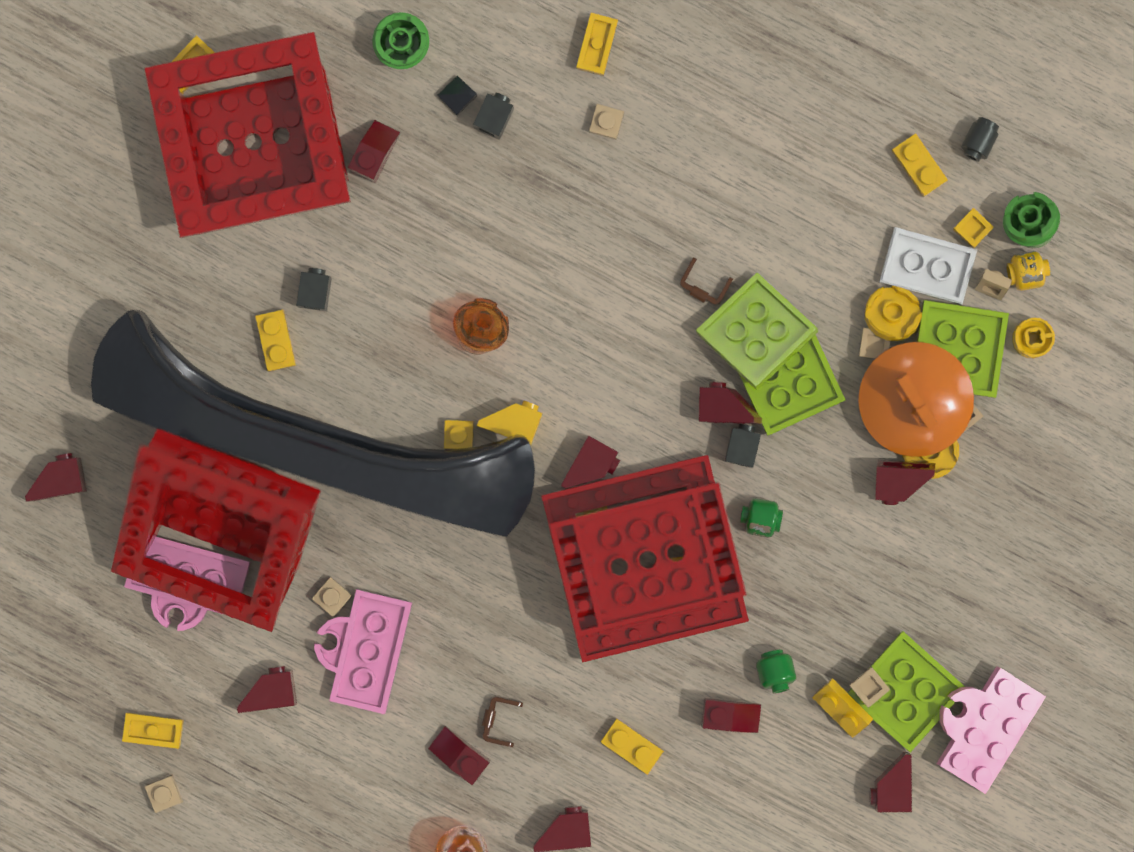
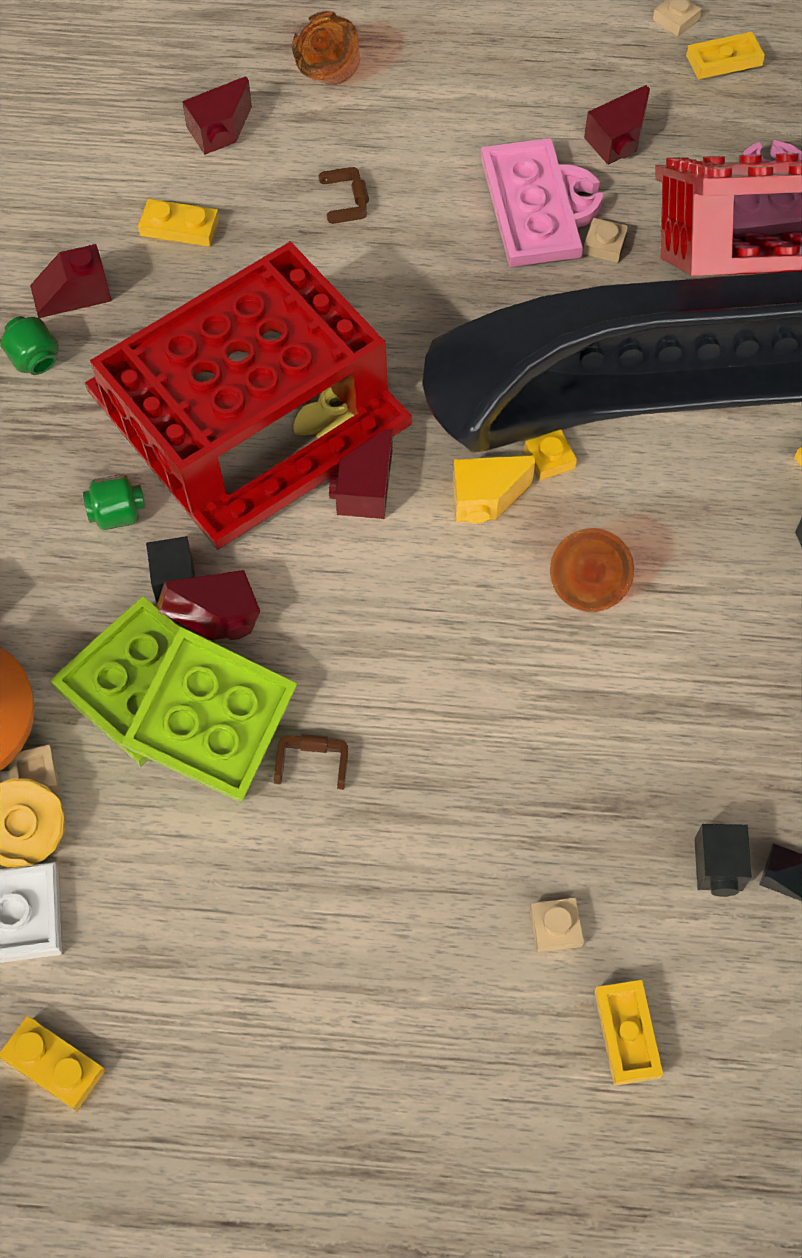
camera: 150 degrees right, 25 degrees down
(459, 755) = (373, 140): dark red slope -> none

